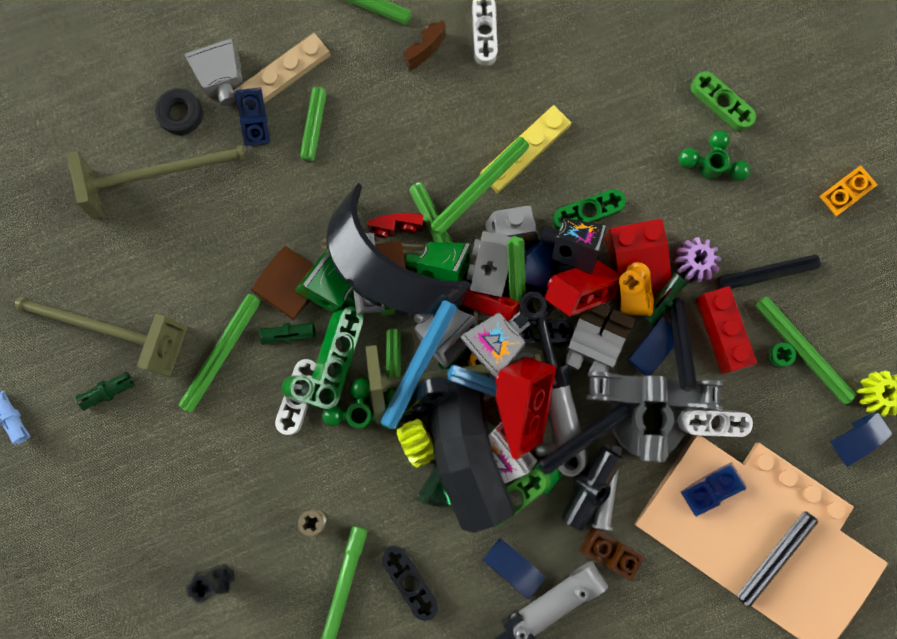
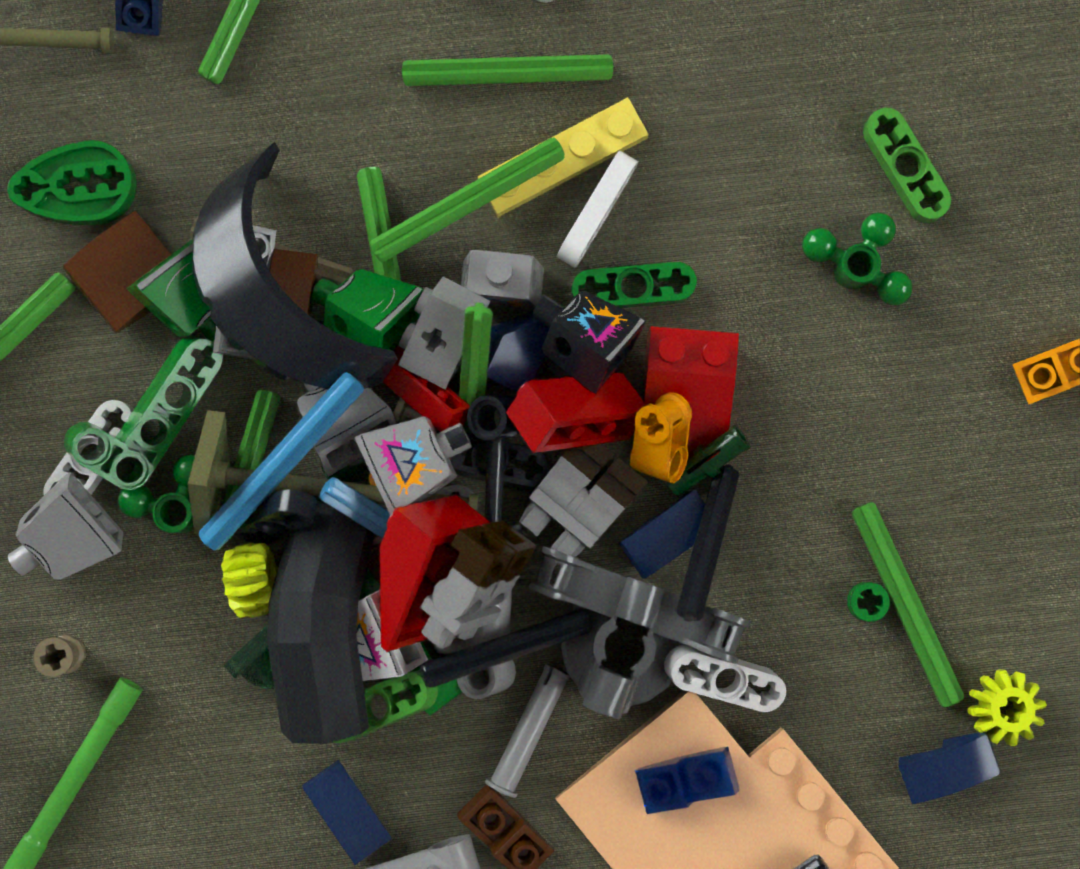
camera: 20 degrees right, 5 degrees up
(253, 252) = (79, 160): none -> green piece
(287, 333) = (101, 352): dark green pin -> none
(296, 446) = (65, 532): none -> light grey torso
(387, 224) = (307, 223): red slope -> none
(427, 596) = (203, 816): black beam -> none
(479, 108) = (507, 70): none -> bright green axle
(555, 172) = (597, 209): none -> white beam
(560, 403) = (478, 581): none -> hips
(592, 488) = (501, 725): black piece -> none
(693, 250) = (792, 424): lavender gear -> none
(725, 330) = (788, 539): red brick -> none
(769, 272) = (890, 465): black axle -> none

